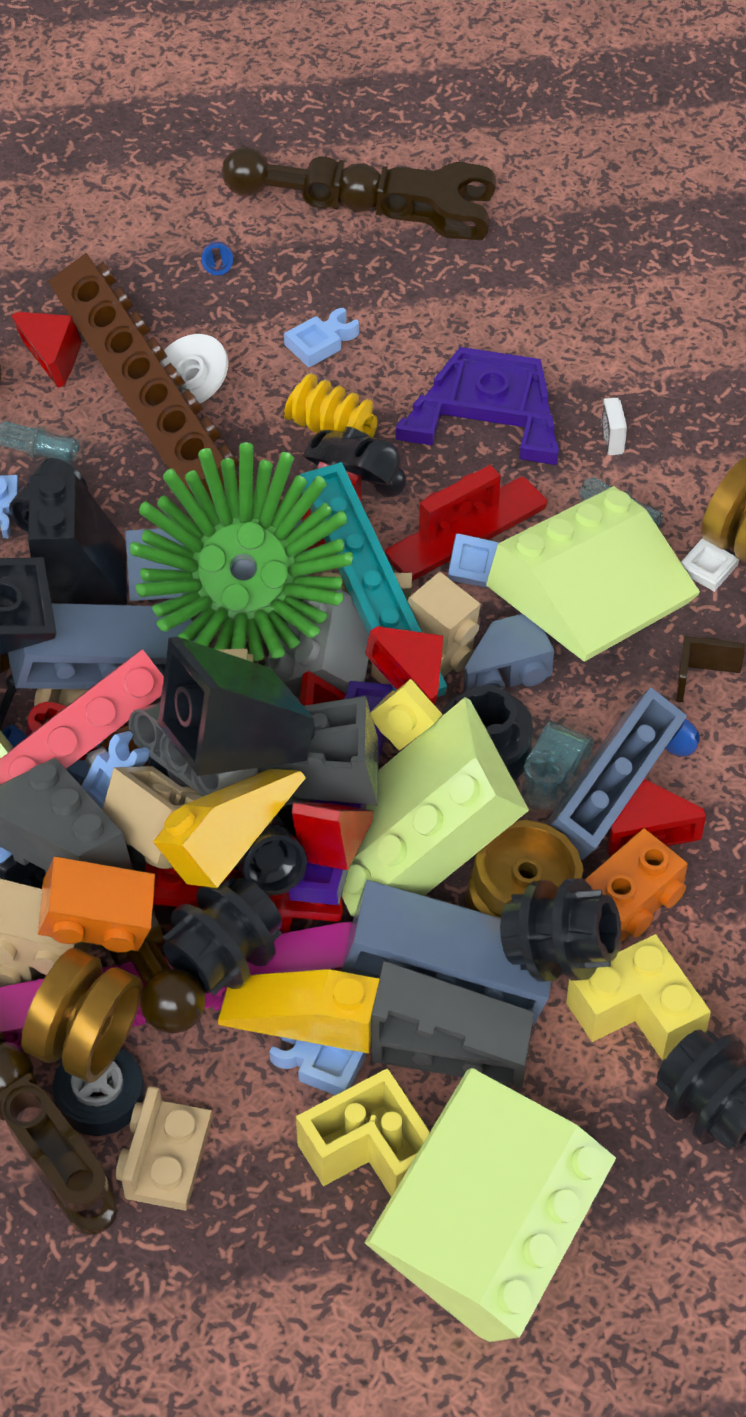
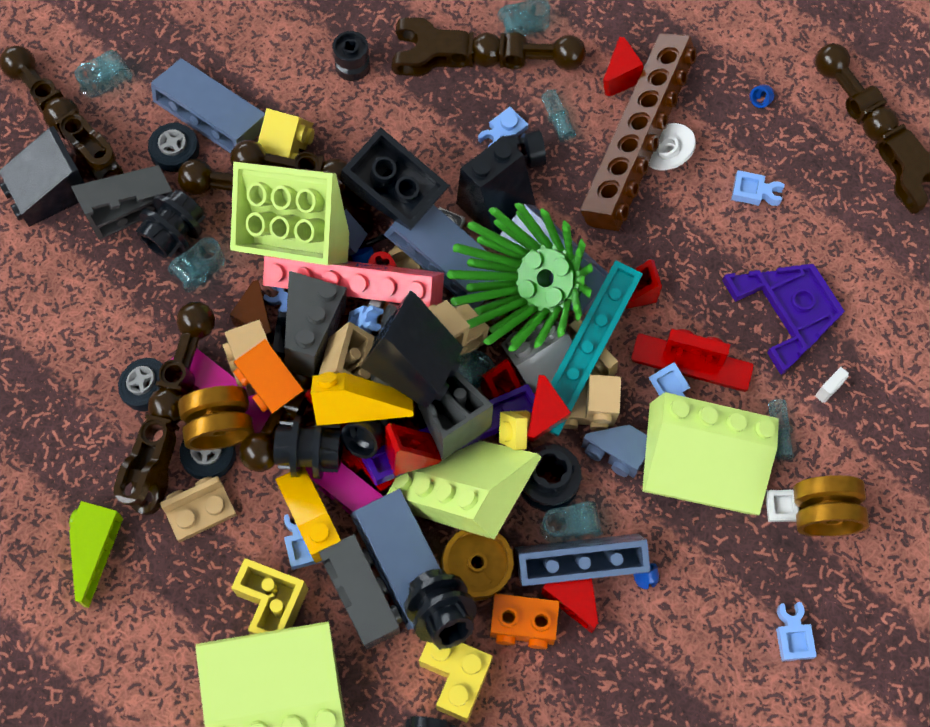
camera: 50 degrees right, 15 degrees up
(93, 1313) = (91, 541): none -> lime slope
(327, 409) = (703, 236): yellow piece -> none
(361, 454) = (674, 276): black piece -> none
(710, 655) = (714, 549): dark brown bracket -> none

